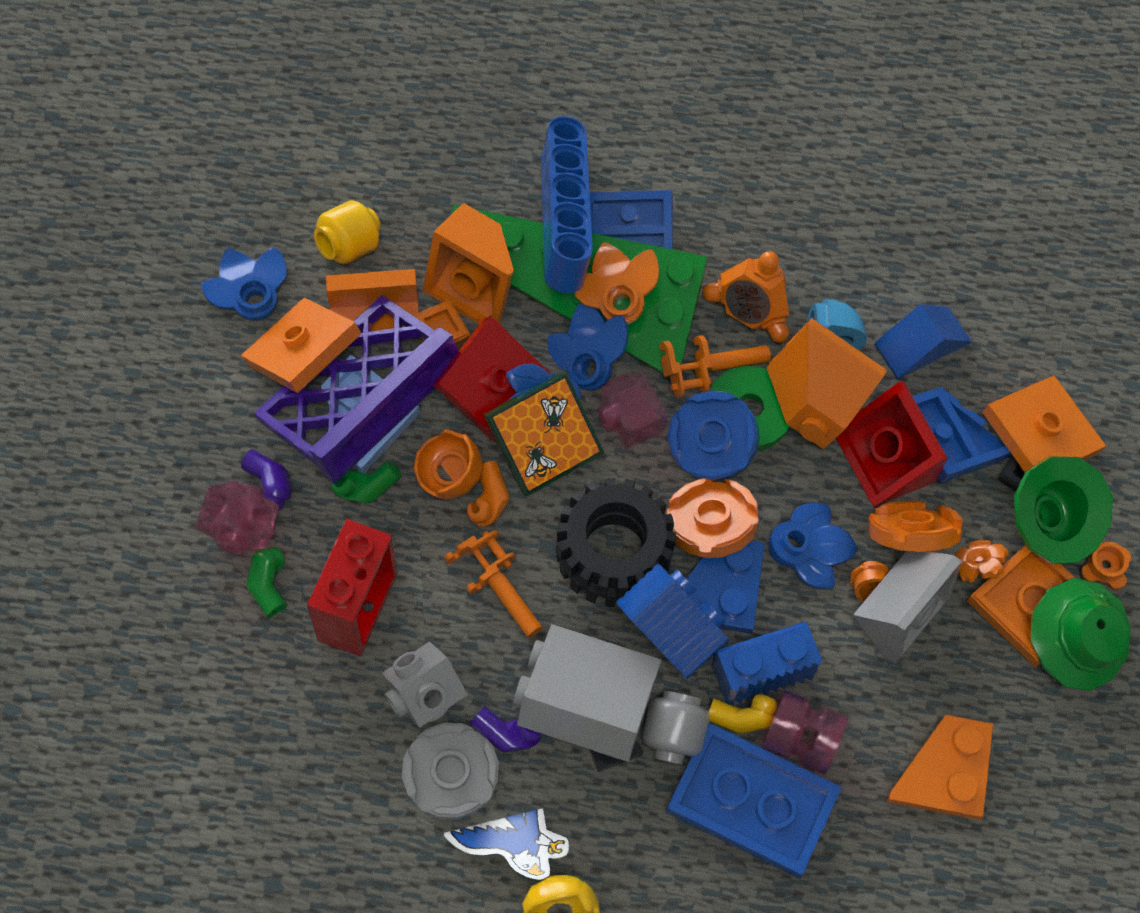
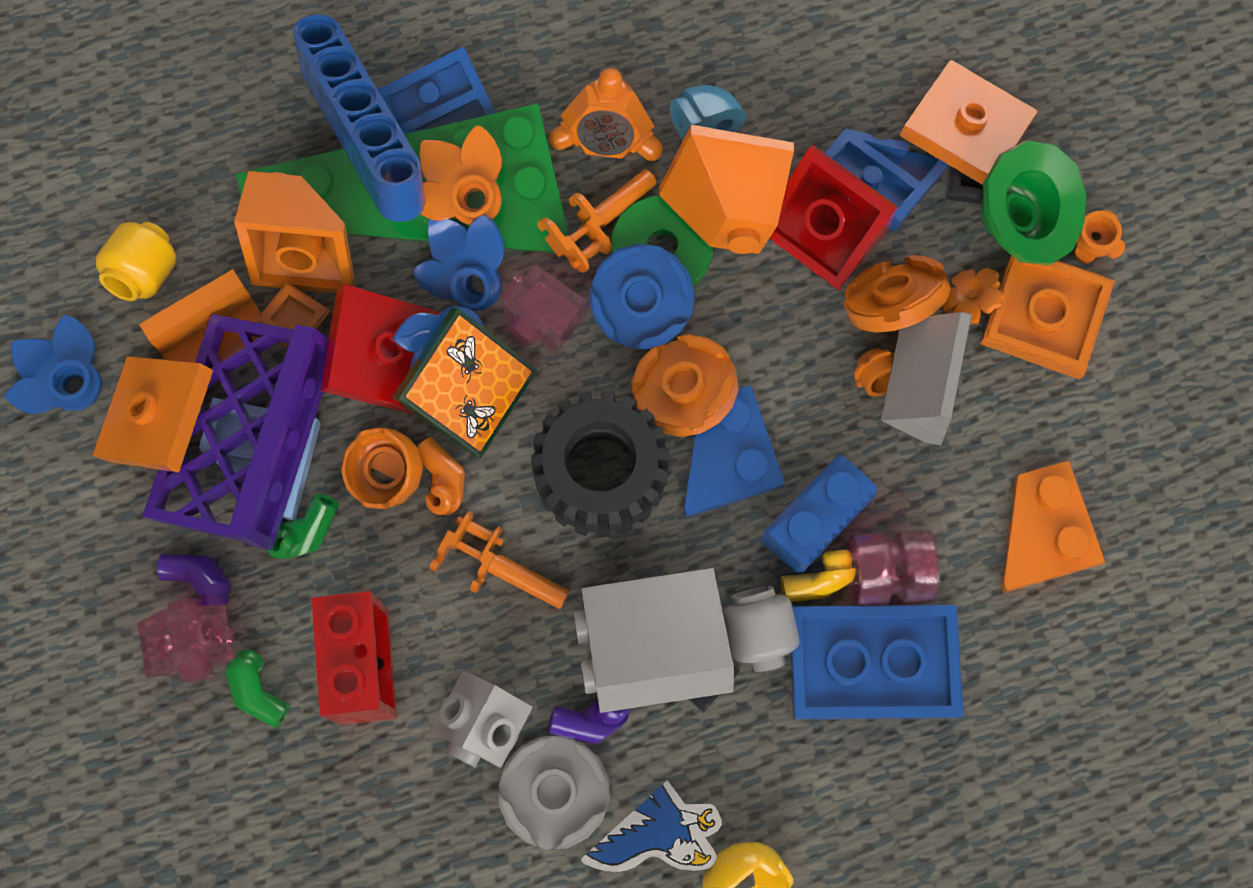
camera: 25 degrees left, 10 degrees up
(673, 621) = (704, 521): blue brick -> none
(819, 545) = (804, 356): blue plate -> none
(921, 339) = (799, 86): blue slope -> none
(1068, 636) = (1102, 331): green hat -> none

